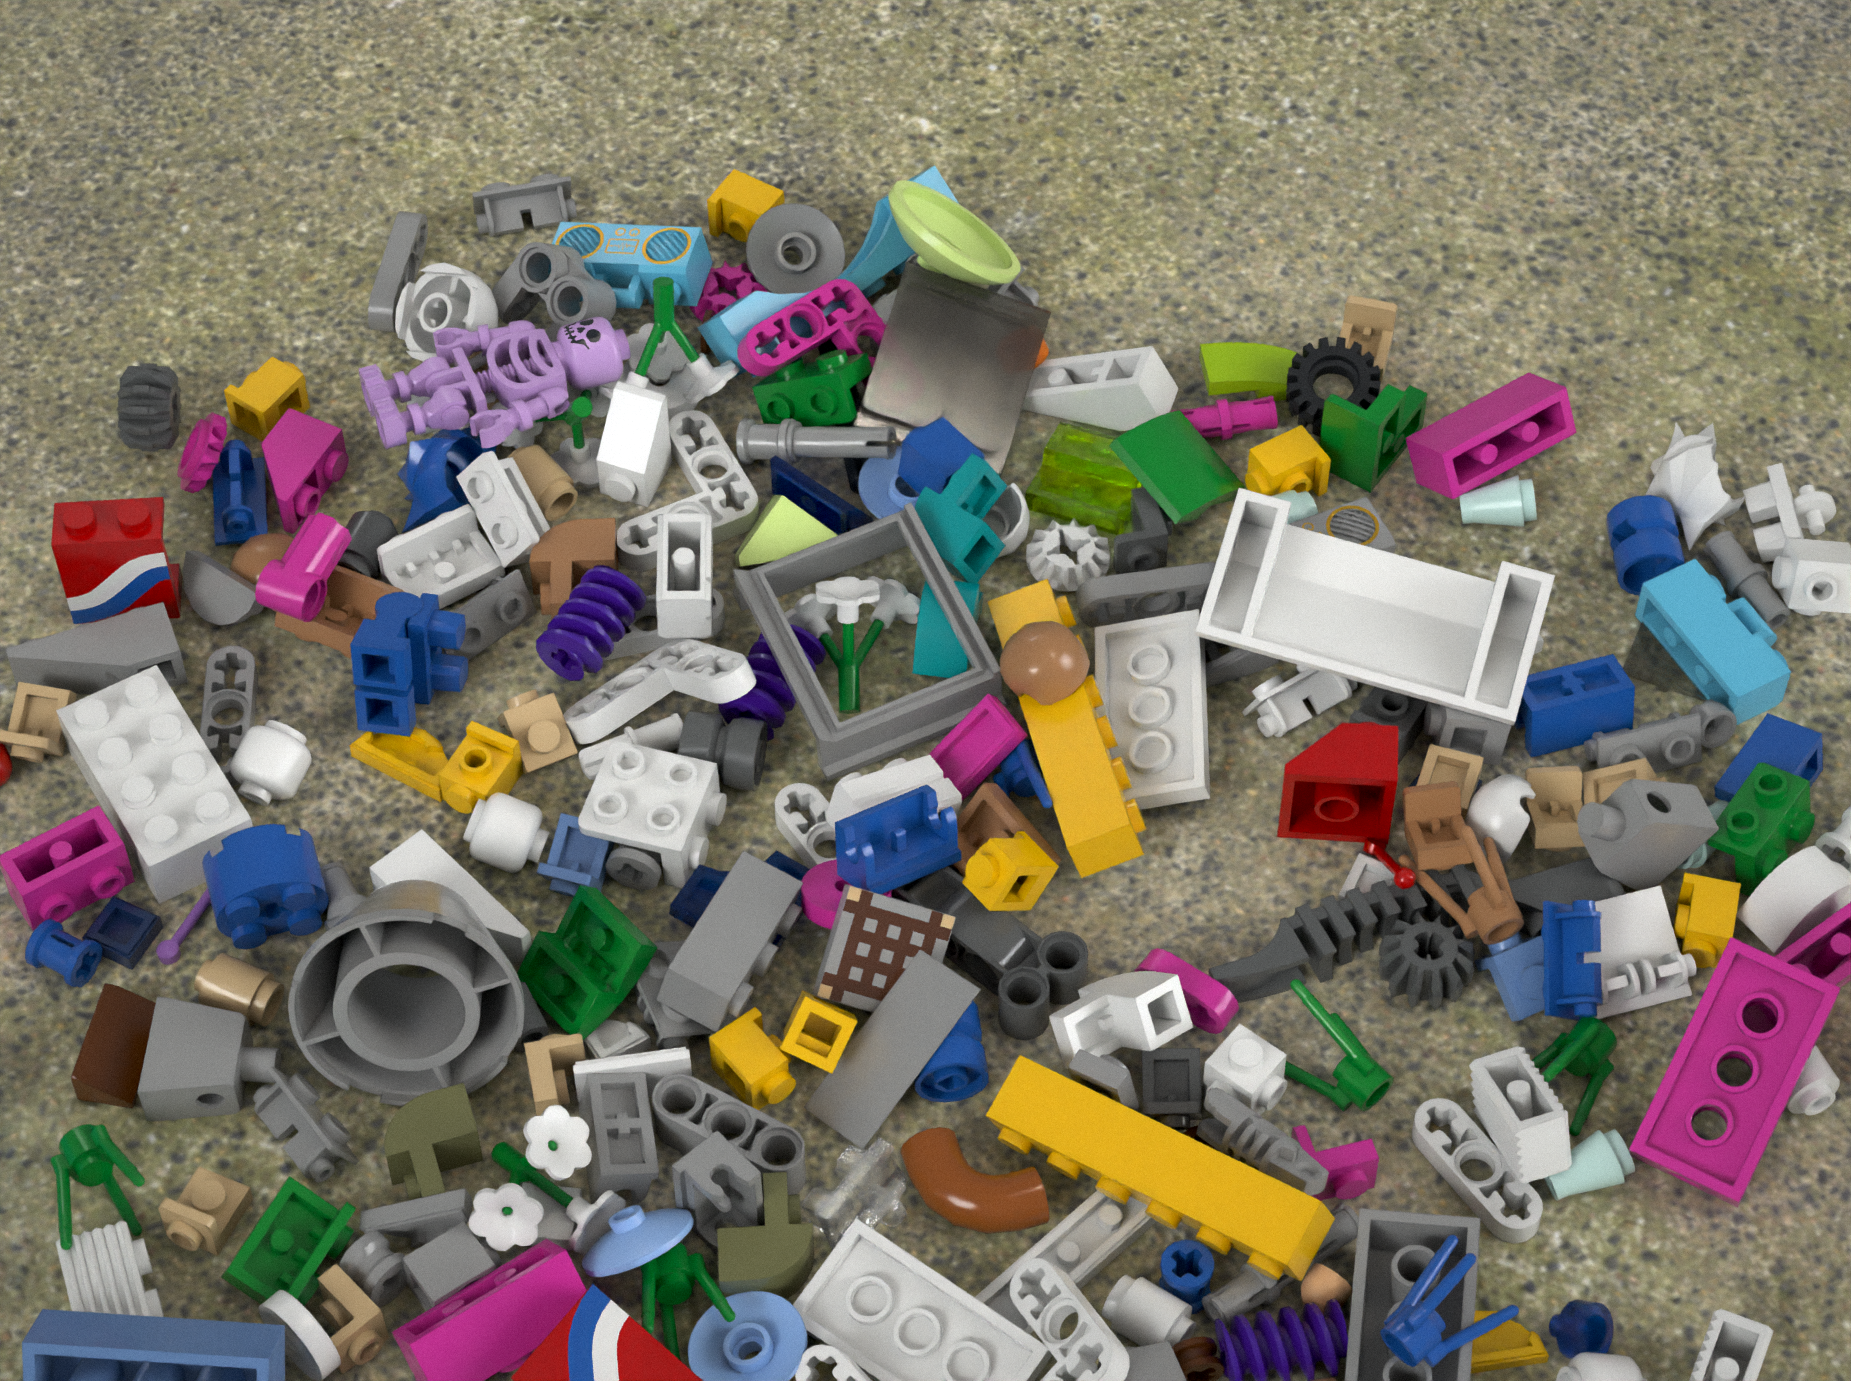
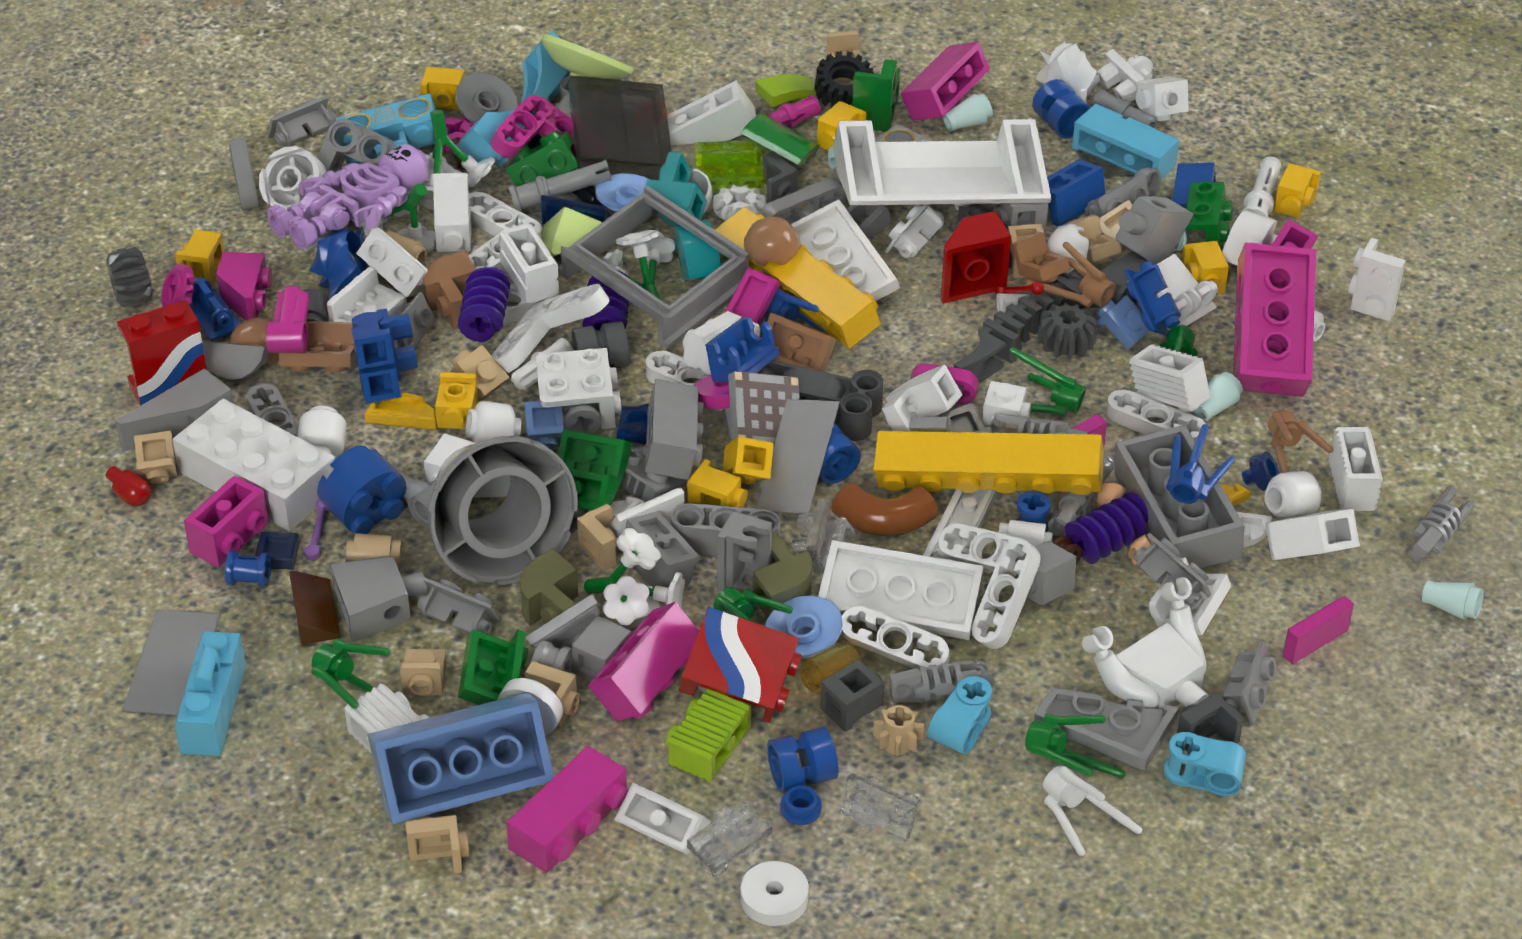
camera: 25 degrees left, 10 degrees down
(636, 1239) = (707, 591): light blue dish -> none
(933, 455) = (637, 167): blue brick -> none
(998, 864) = (808, 348): yellow brick -> none
(1658, 1274) = (1288, 432): none -> medium nougat plant

